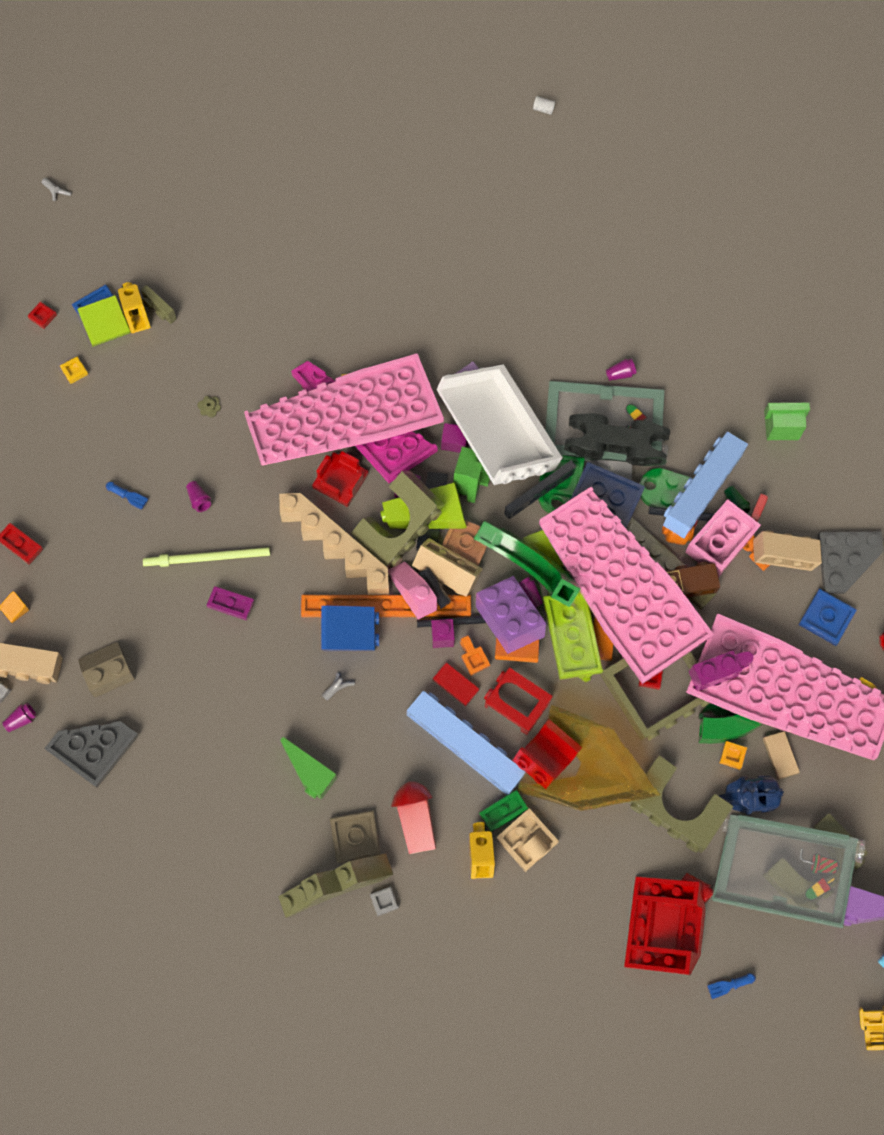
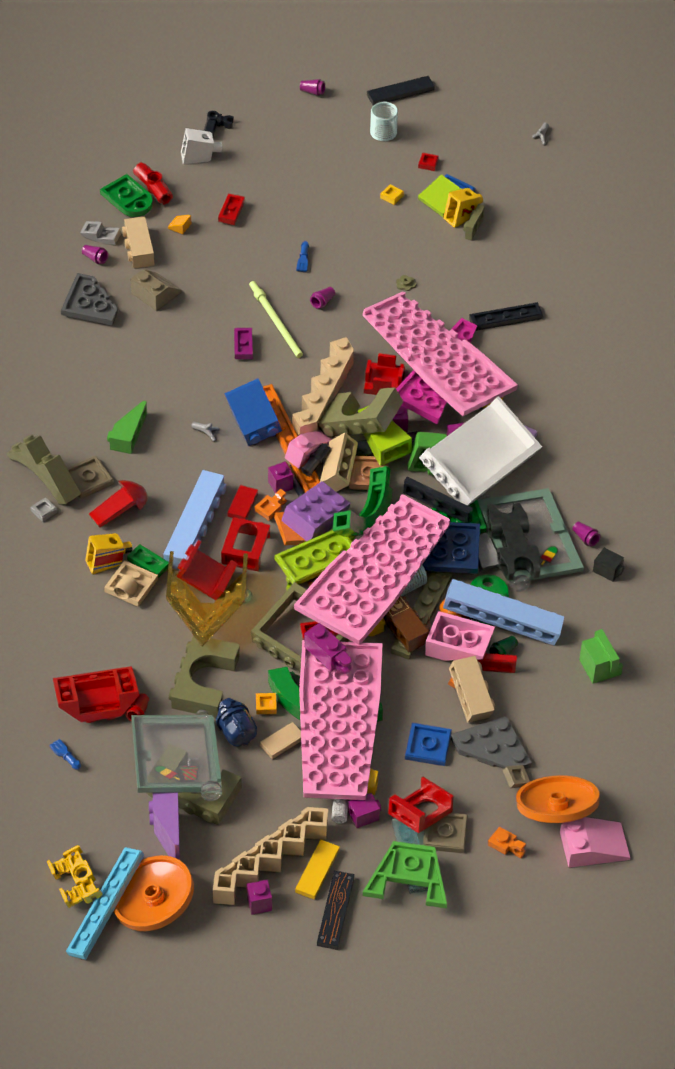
camera: 70 degrees right, 20 degrees down
(301, 328) = (506, 316): none -> black tile
(669, 366) = (608, 564): none -> pearl dark grey brick

